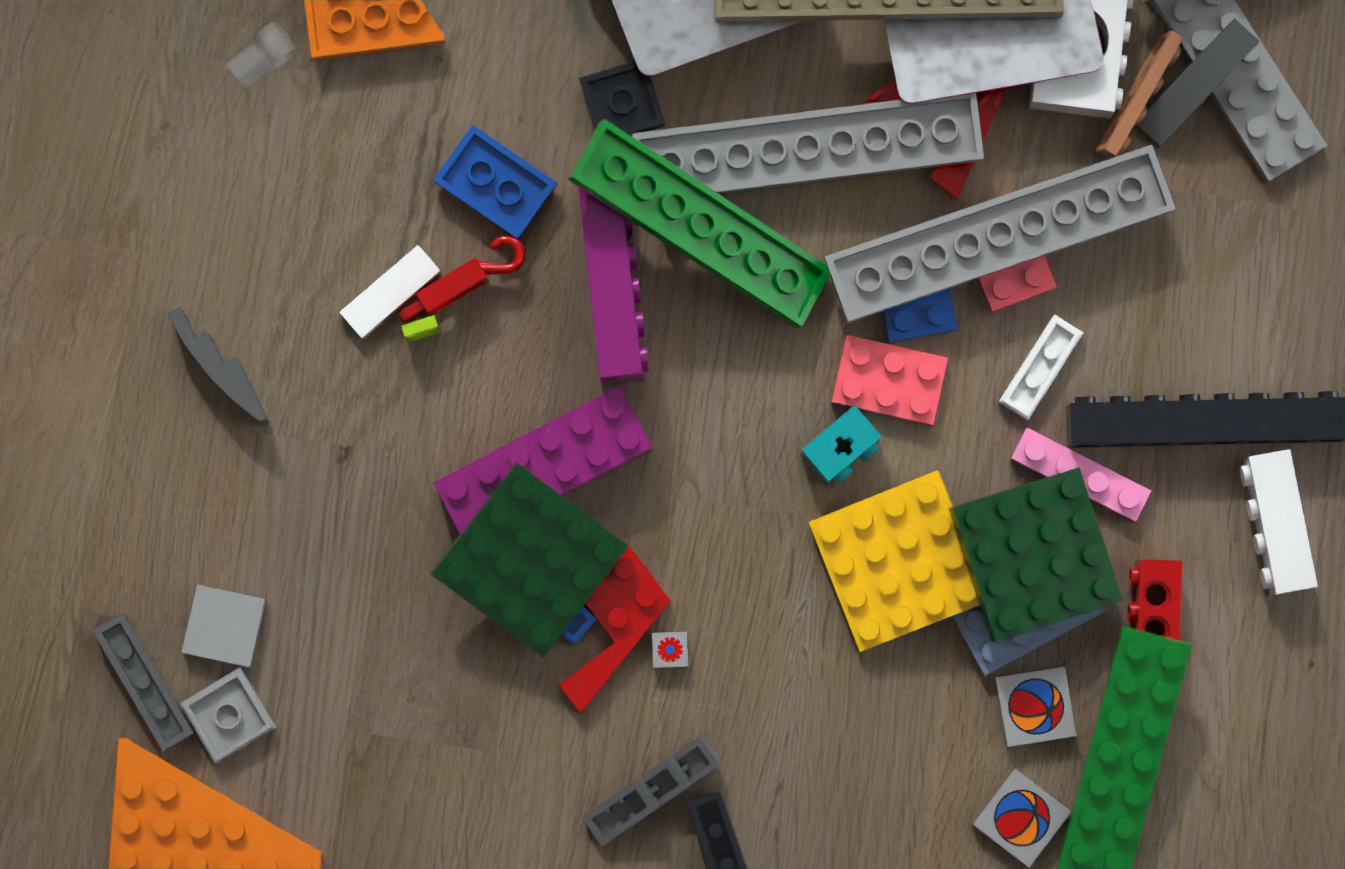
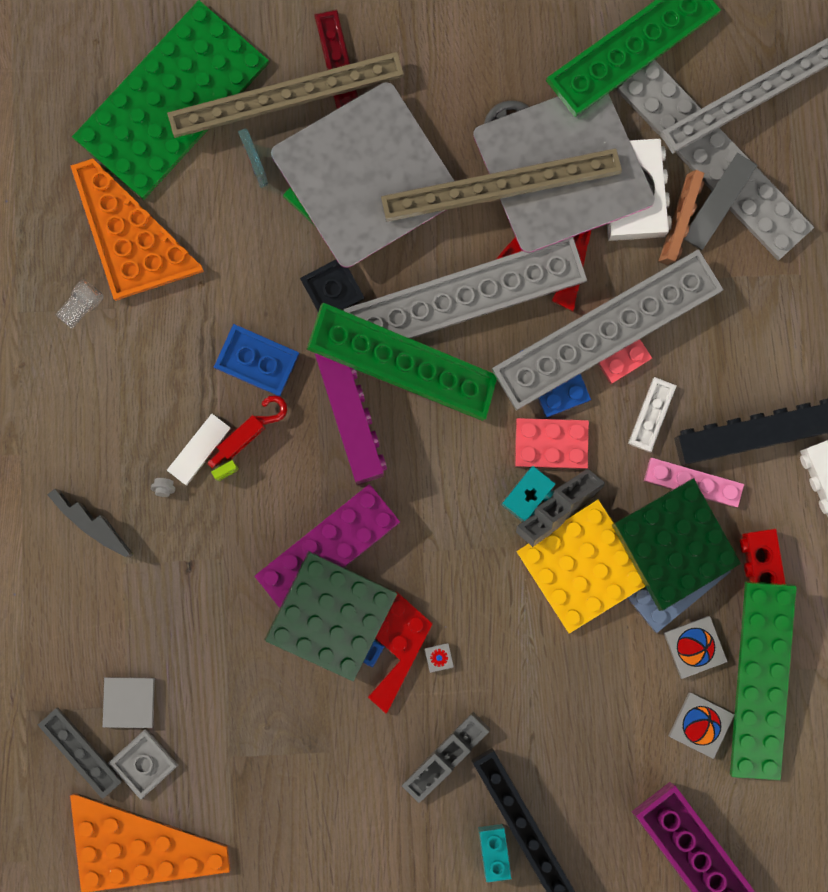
camera: 20 degrees left, 0 degrees up
(329, 335) = (163, 487): none -> light grey plate
(889, 467) = (565, 503): none -> dark grey slope

